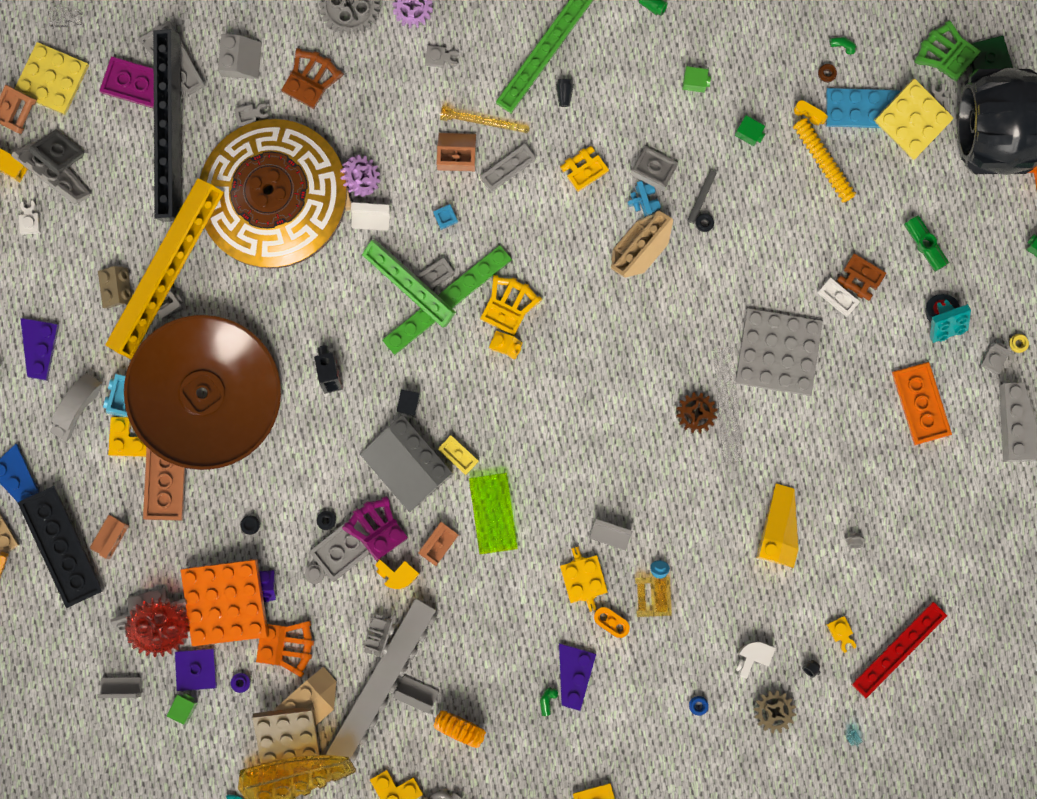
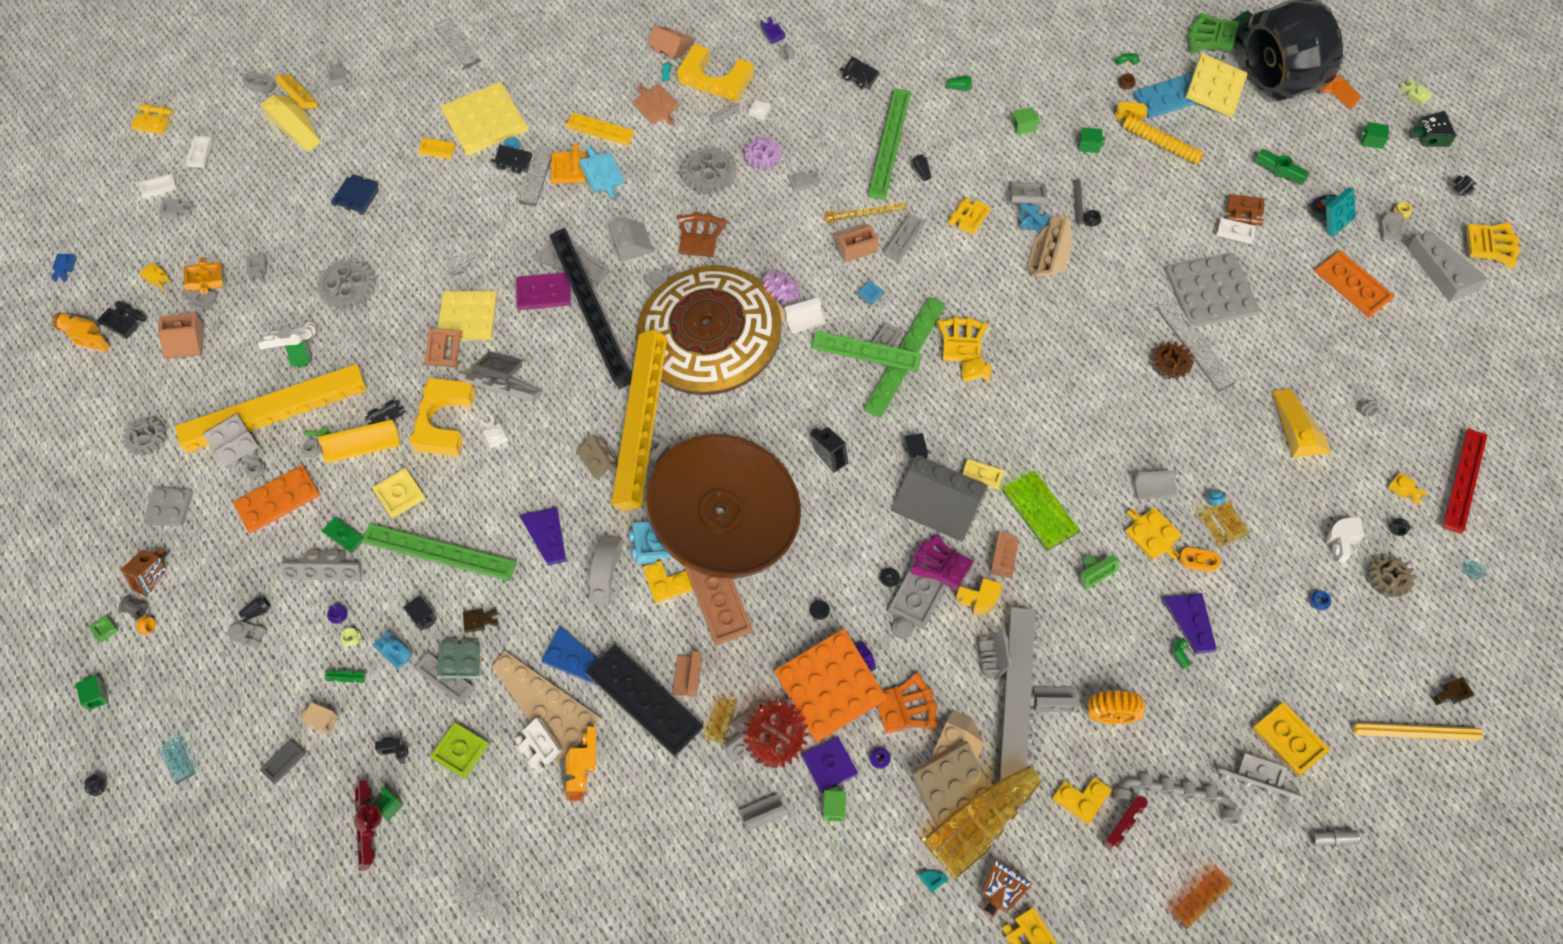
camera: 20 degrees left, 20 degrees down
(119, 592) = (720, 721): none -> clear yellow panel
(513, 594) = (1098, 570): none -> bright green tile

